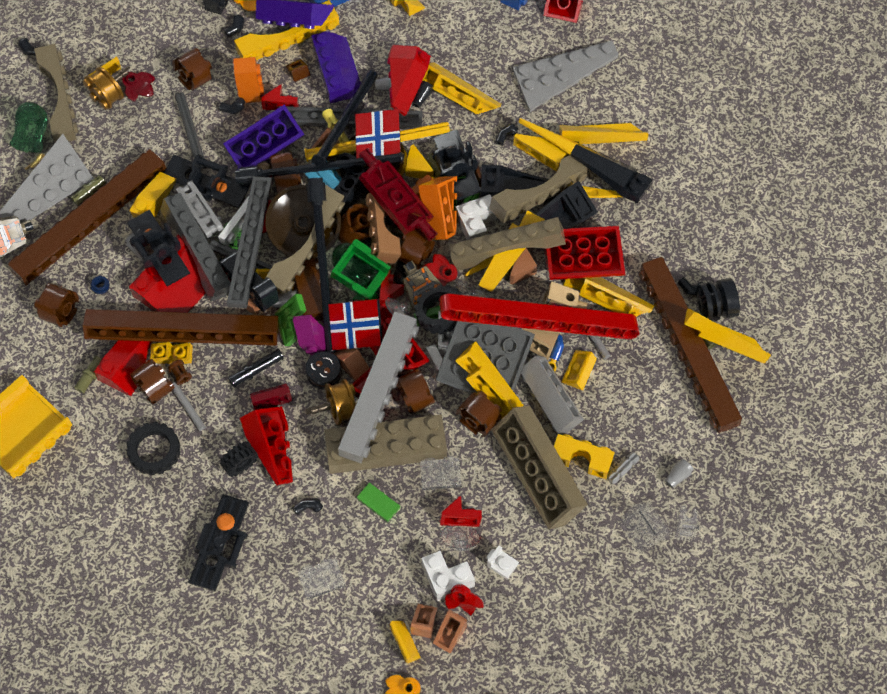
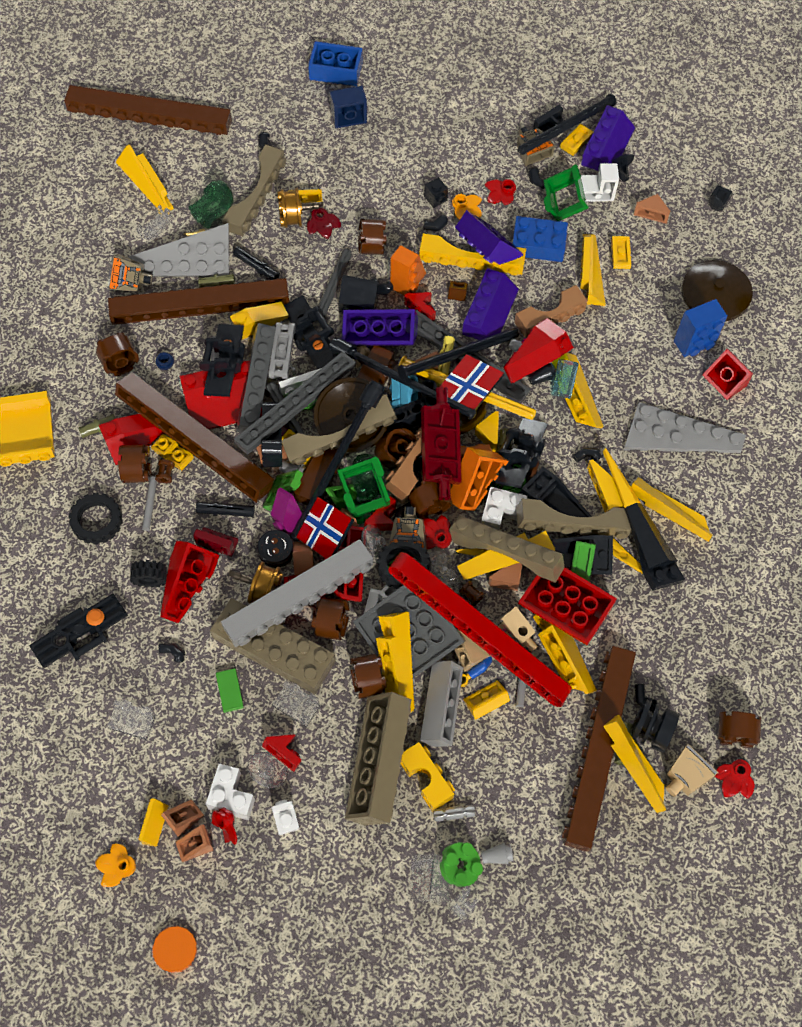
camera: 35 degrees right, 0 degrees up
(110, 154) = (262, 267): none -> black pin
(222, 124) = (358, 294): none -> black slope
(341, 294) = (336, 495): none -> bright green slope
(398, 22) = (571, 303): none -> medium nougat arch
(443, 85) = (564, 379): none -> clear light blue slope
(505, 295) = (471, 593): none -> reddish brown bush
(569, 213) = (583, 559): none -> bright green tile
(667, 495) = (450, 860): none -> bright green plate
(765, 317) = (689, 772): none -> tan torso
(776, 260) = (739, 728): none -> reddish brown brick
(800, 301) = (735, 782): none -> red plate

